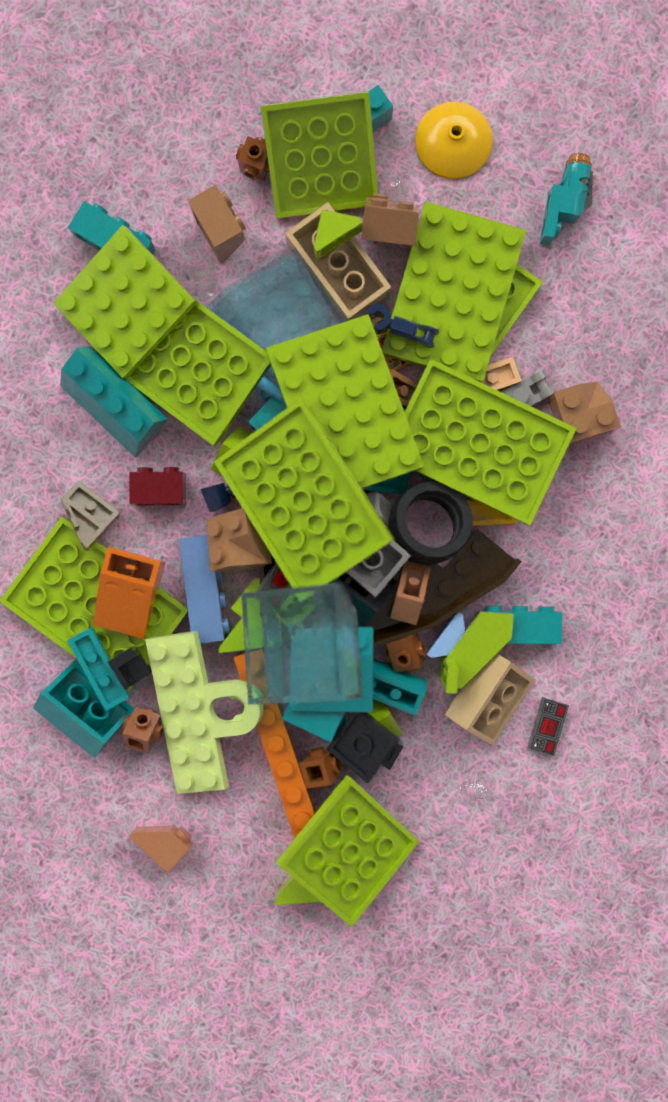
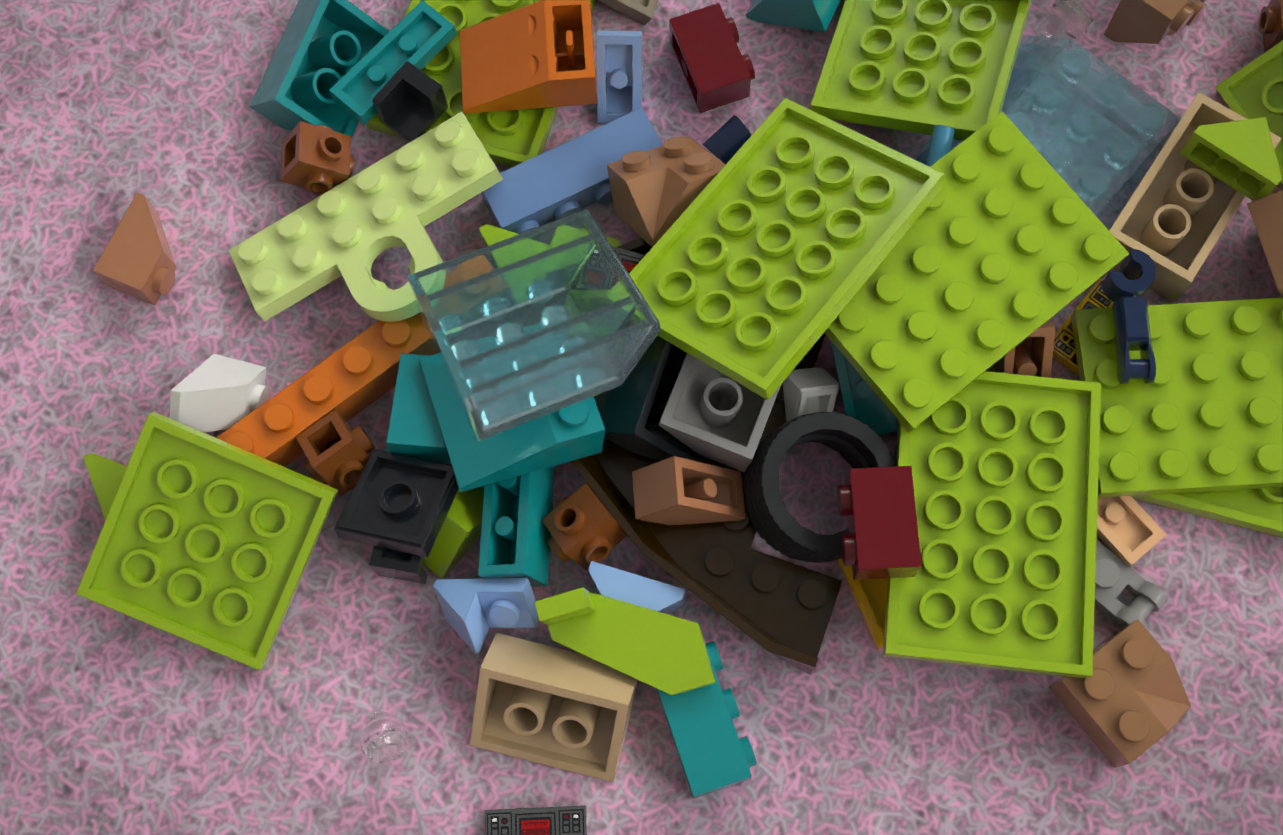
camera: 75 degrees right, 15 degrees down
(152, 543) = (618, 73): none -> light blue slope
(266, 822) = (219, 394): none -> white slope
(427, 719) = (486, 603): none -> light blue slope
(468, 503) = (880, 523): none -> dark red brick

